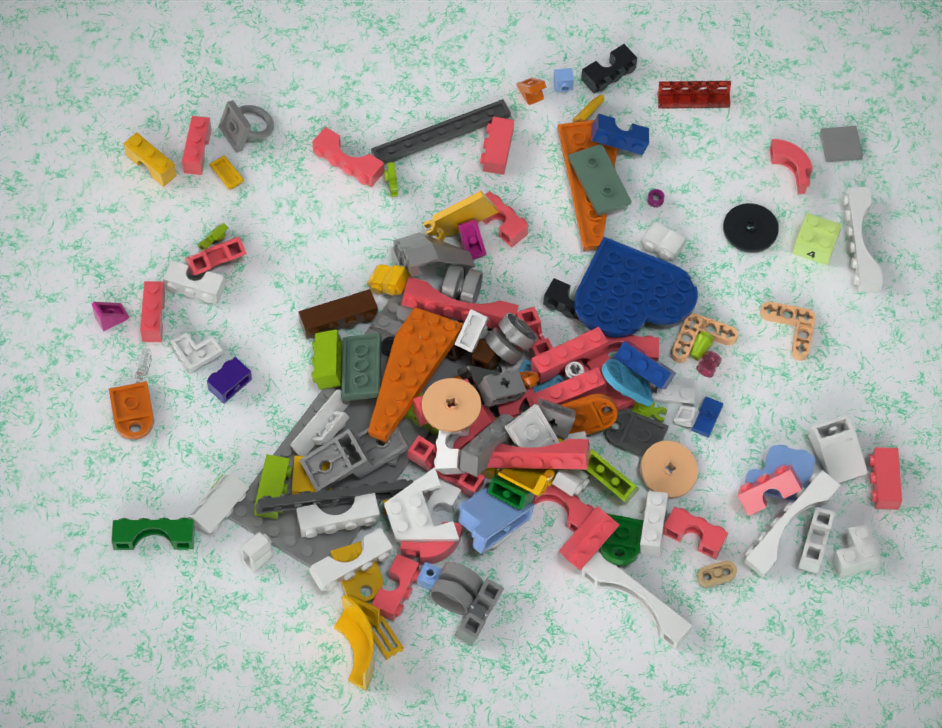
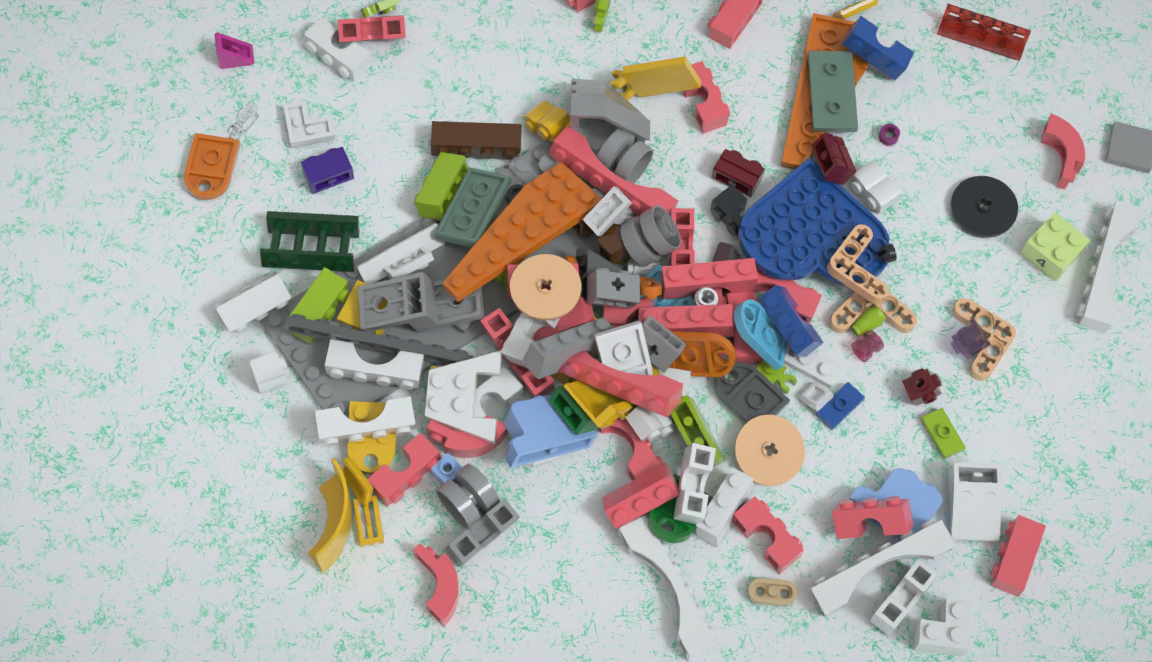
camera: 20 degrees right, 5 degrees up
(128, 532) = (144, 300): green arch -> none
(152, 307) = (284, 53): coral arch -> none
(238, 426) = (310, 224): none -> dark green fence
(466, 658) = (446, 596): none -> coral arch
(471, 238) = (659, 108): dark pink slope -> none
(553, 266) = (738, 171): none -> dark red brick
(570, 332) = (725, 252): none -> dark grey slope
(622, 500) = (695, 468): none -> white arch
(623, 230) = (833, 158): none -> dark red brick
(669, 306) = (848, 263): none -> light nougat beam
(695, 288) = (887, 253): none -> black hinge
(763, 385) = (923, 386): none -> dark red brick
(783, 331) = (970, 340): none -> clear purple brick
(792, 409) = (943, 433): none -> lime plate

